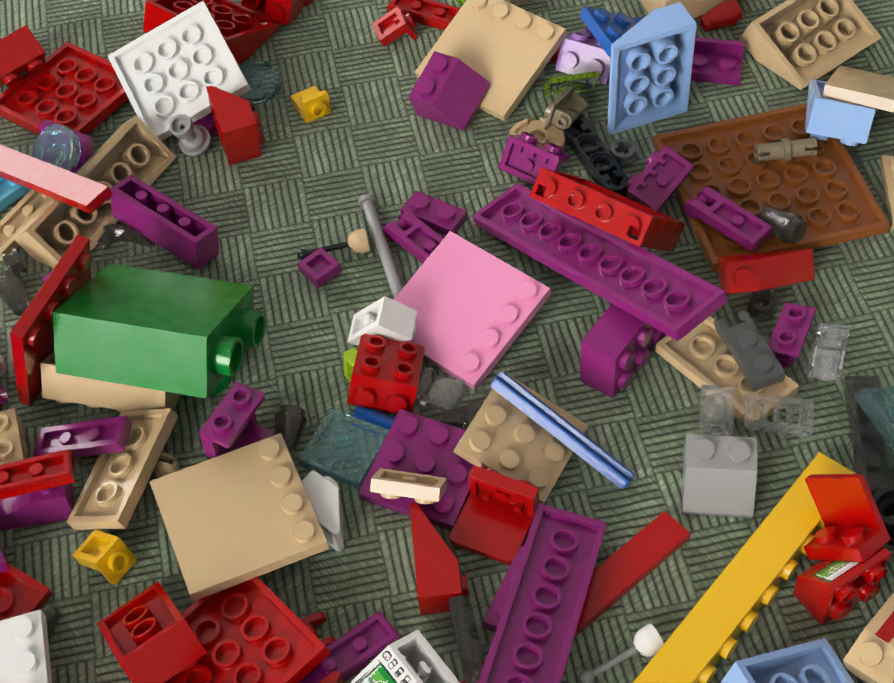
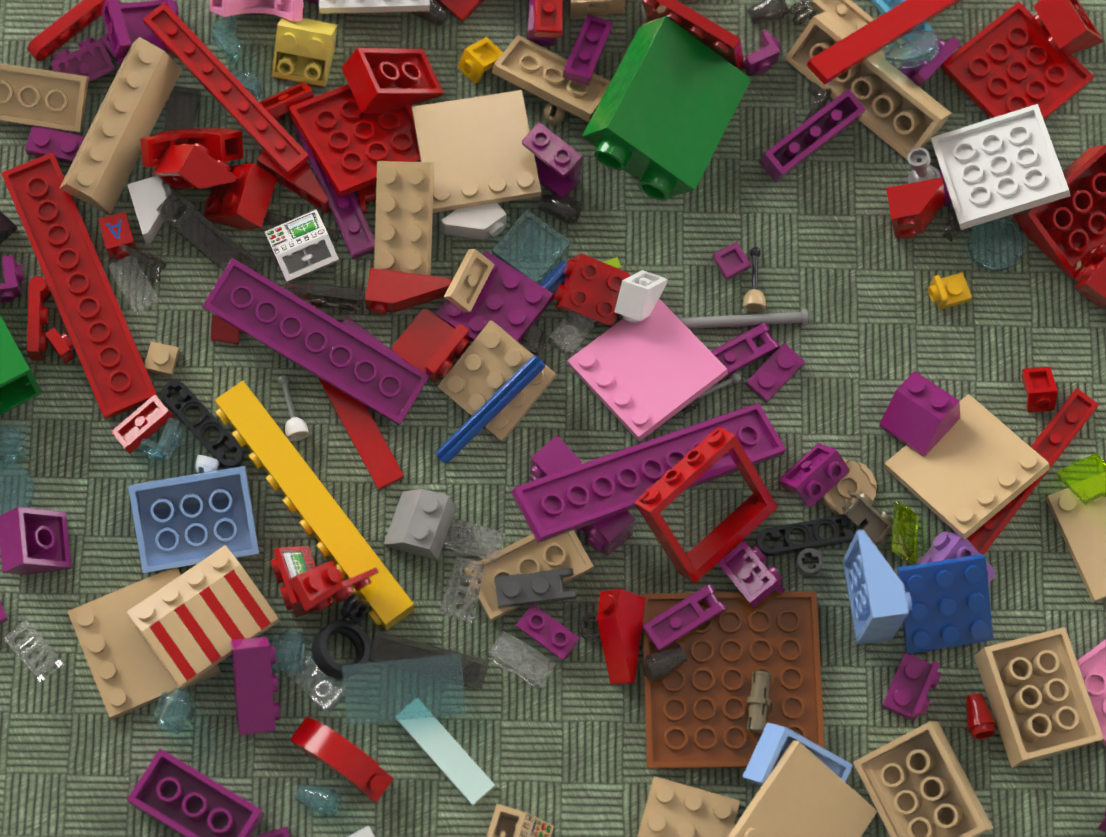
camera: 95 degrees right, 20 degrees up
(342, 572) = (404, 216): none -> tan plate

